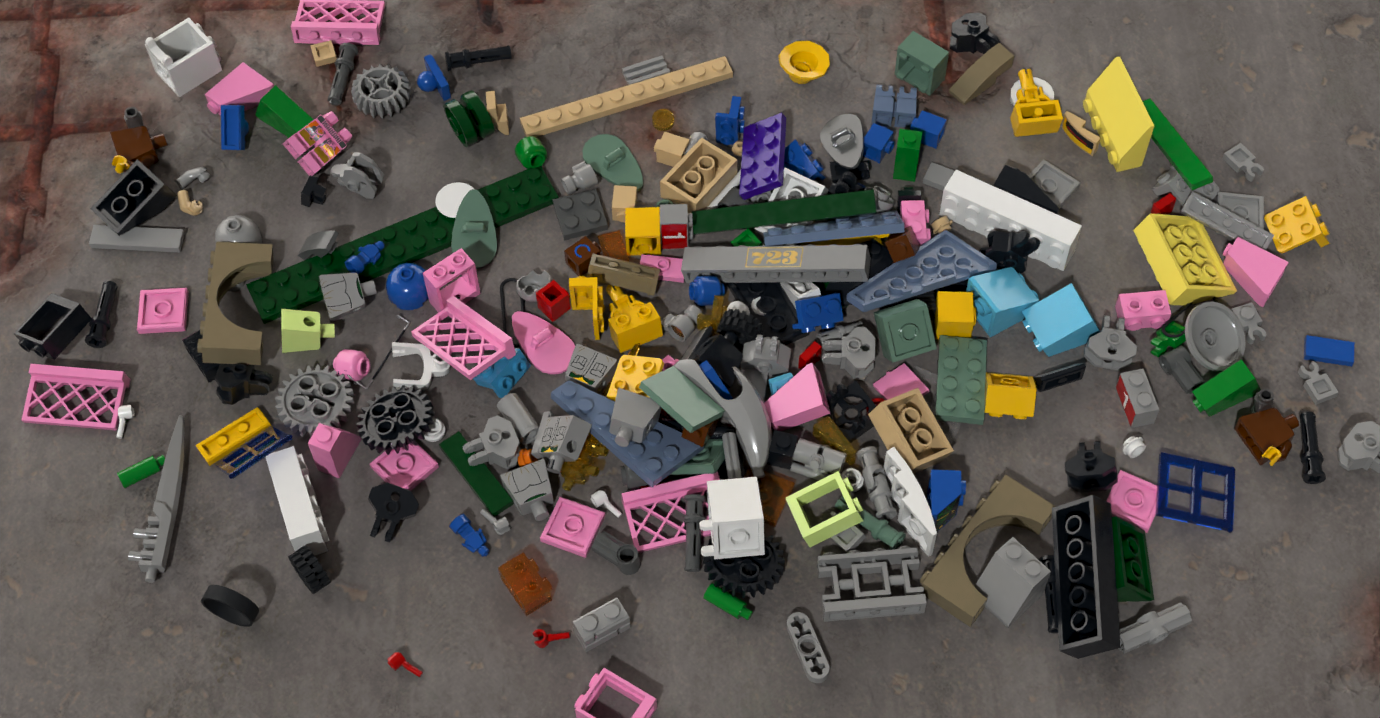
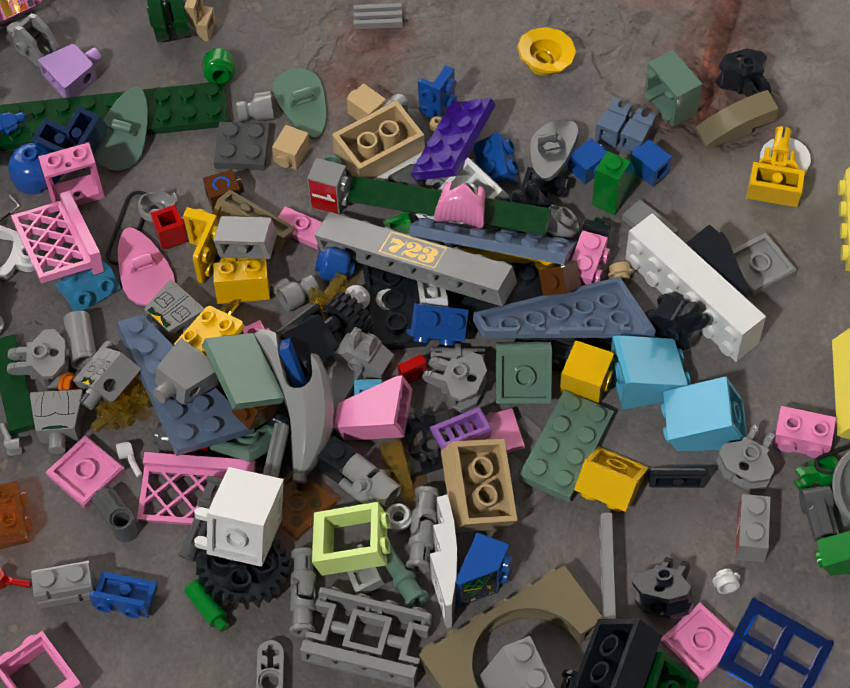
camera: 20 degrees right, 0 degrees up
(401, 192) = (70, 69): none -> lavender torso
(444, 242) = (82, 129): none -> dark blue brick
(450, 198) = (114, 87): white sticker -> none
(613, 246) = (260, 189): clear orange tile -> none
(626, 97) = (346, 37): tan plate -> none
(627, 289) = (245, 237): none -> light grey brick
(642, 231) = (289, 182): yellow head -> none
(655, 616) = (124, 594): none -> blue bracket
(663, 119) = (373, 71): clear yellow tile -> none
(801, 208) = (461, 205): none -> bright pink hair
(802, 565) = (302, 592): none -> light grey piece
(882, 378) = (473, 416): none -> medium lavender slope
(1036, 464) = (607, 566): none -> light grey tile
(1084, 139) = (816, 211): slope -> none

